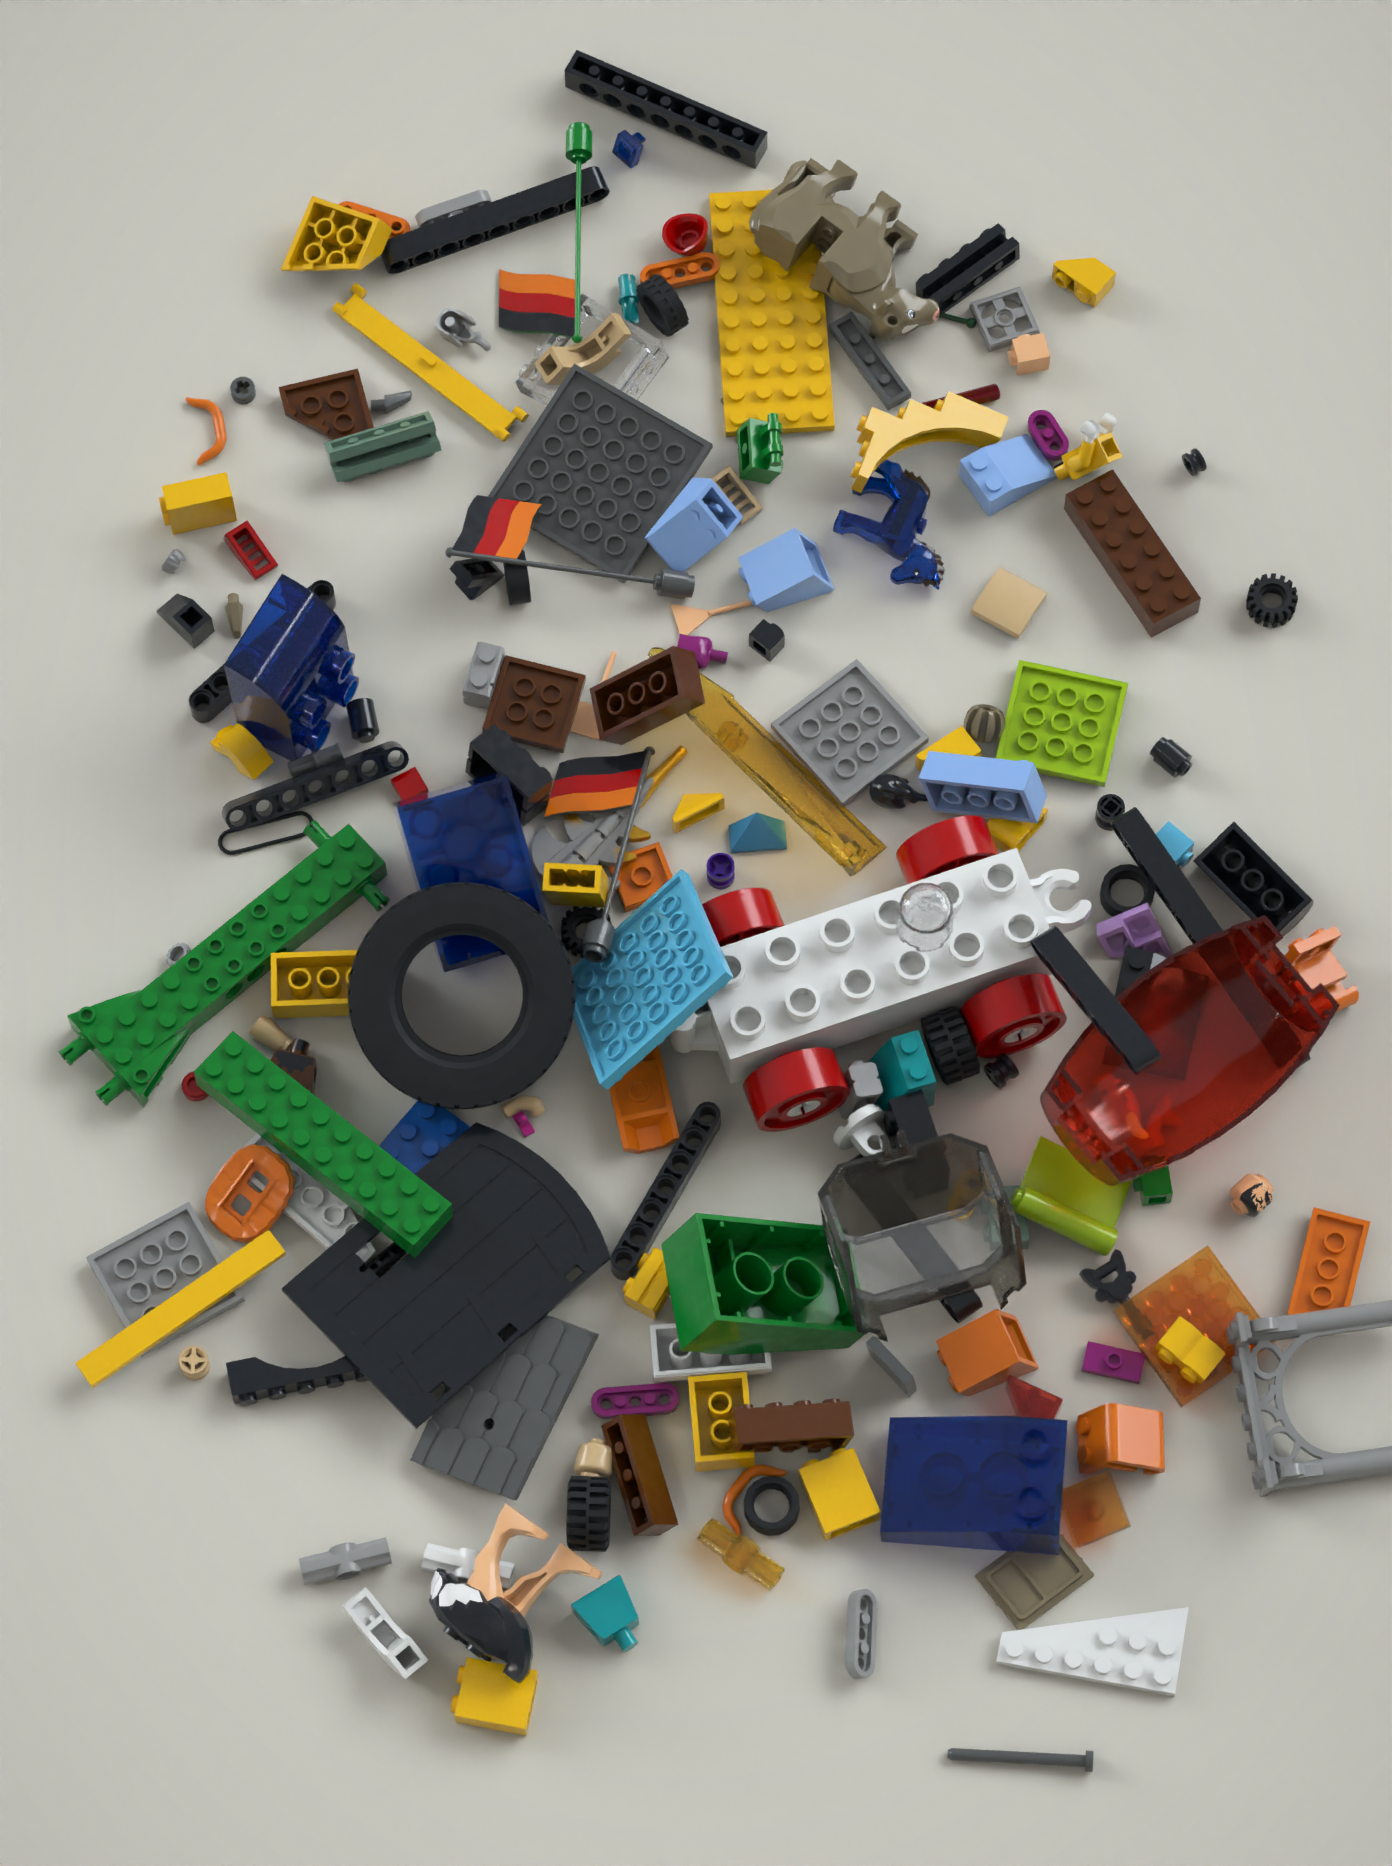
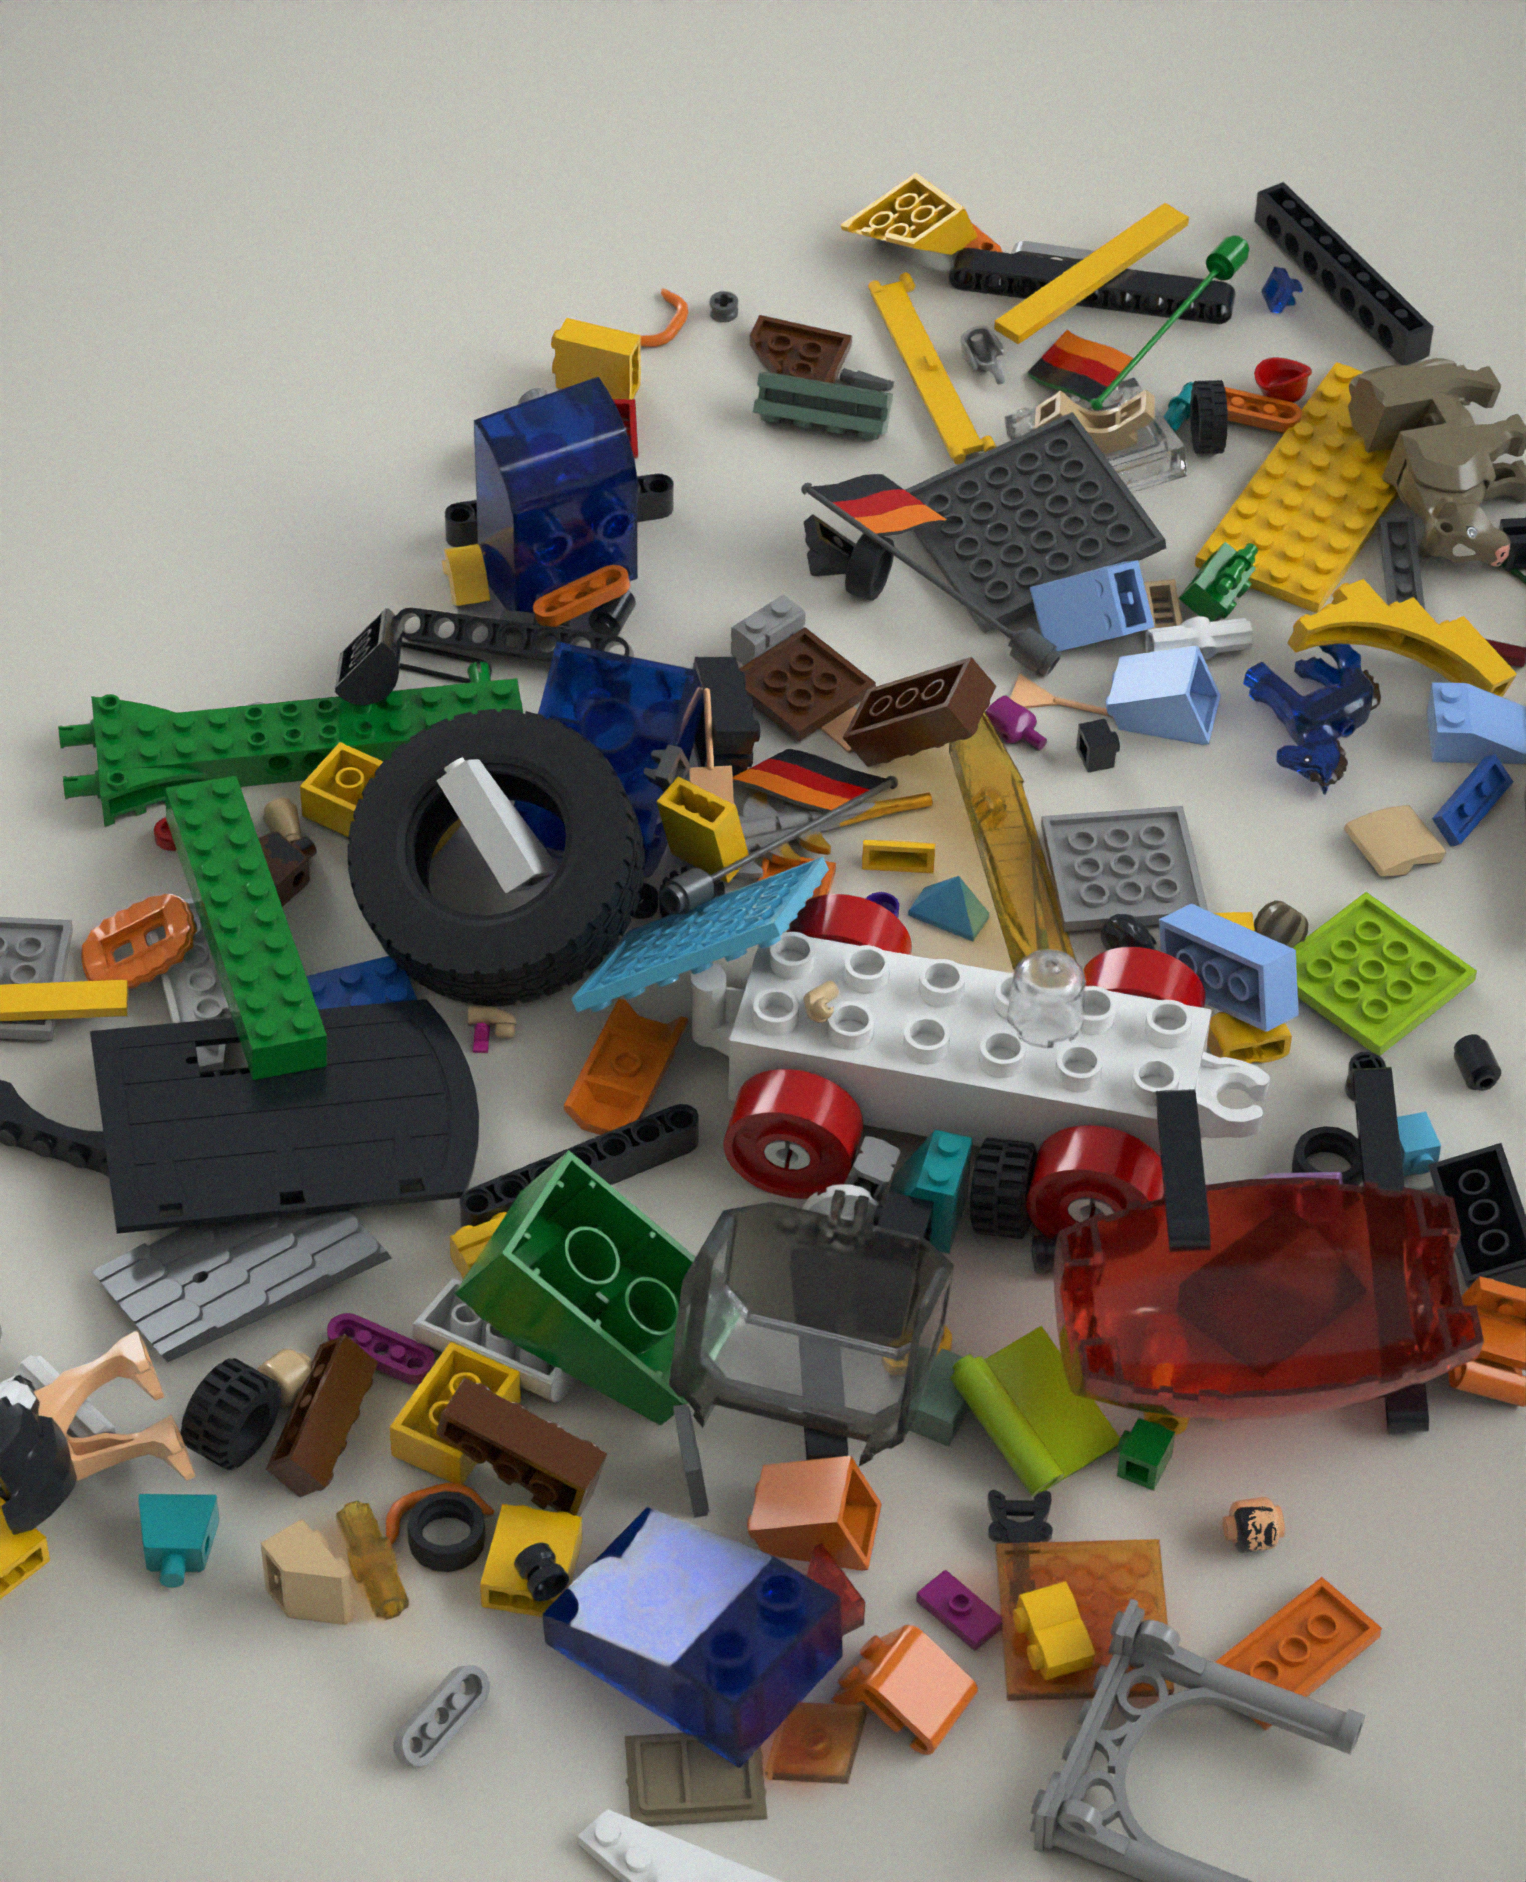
camera: 30 degrees right, 20 degrees down
(244, 874) = (371, 662): none -> black brick
(344, 714) = (581, 595): none -> orange plate
(459, 981) = (496, 827): none -> white slope
(494, 215) = (1091, 273): none -> yellow tile
(536, 860) = (671, 765): none -> dark grey tile
(540, 832) = (713, 779): none -> light nougat piece
(716, 1595) = (306, 1576): none -> tan slope
(772, 1002) = (817, 1000): none -> tan arm
(776, 507) = (1200, 632): none -> white piece
(862, 1505) = (539, 1568): none -> black wheel
(1039, 539) = (1472, 800): none -> blue plate

